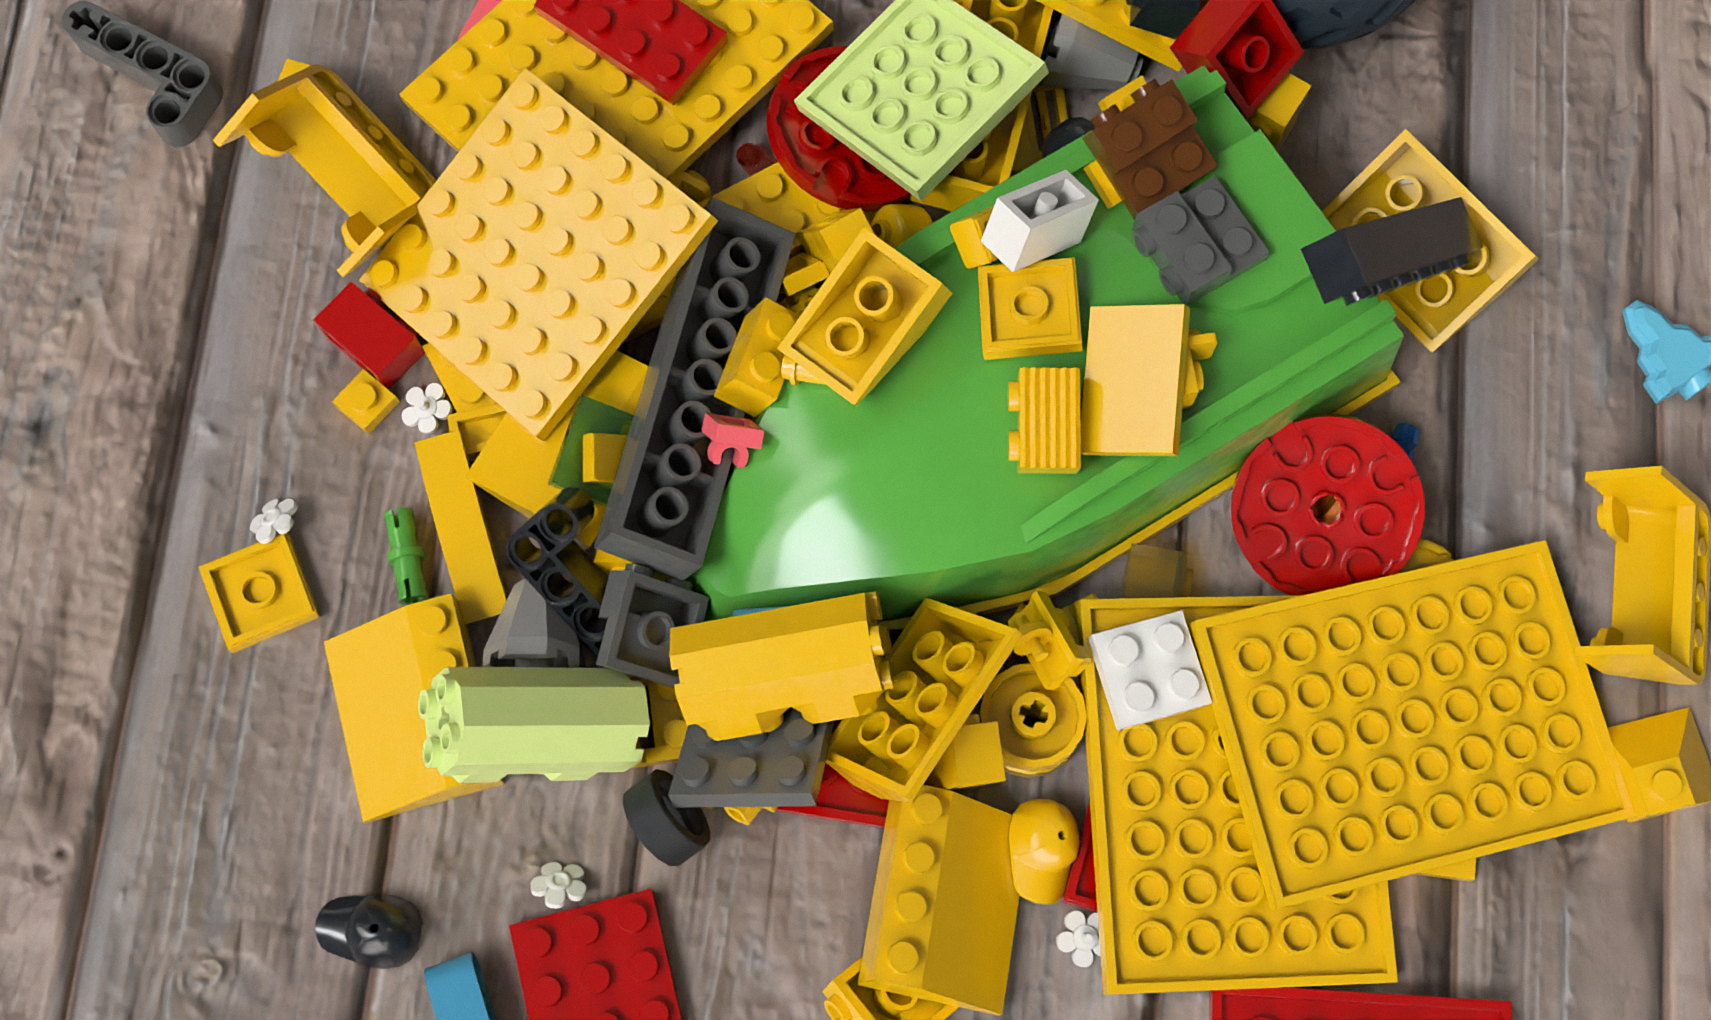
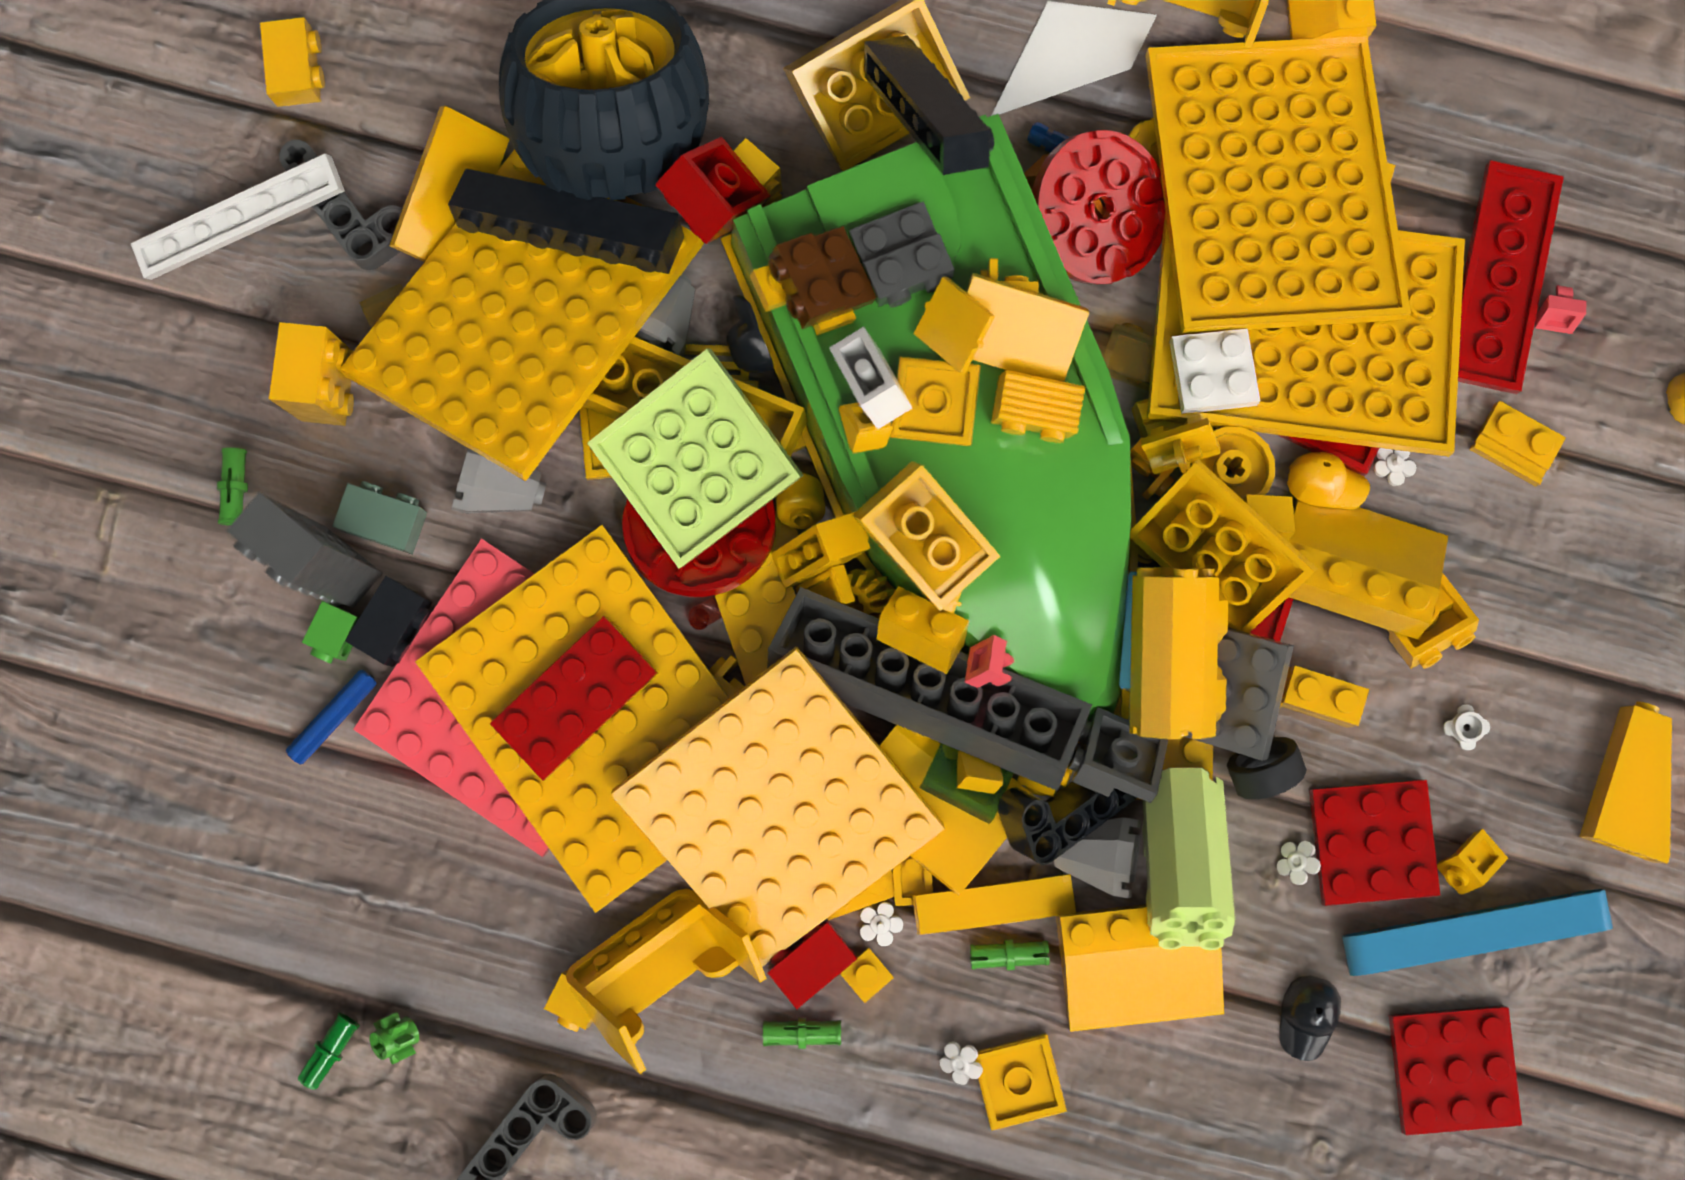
camera: 80 degrees left, 10 degrees up
(291, 340) = (802, 1033): none -> bright green pin
(767, 879) = (1324, 697): none -> yellow brick
(1123, 301) = (954, 324): none -> yellow piece
(1525, 466) = (1072, 49): none -> white sticker

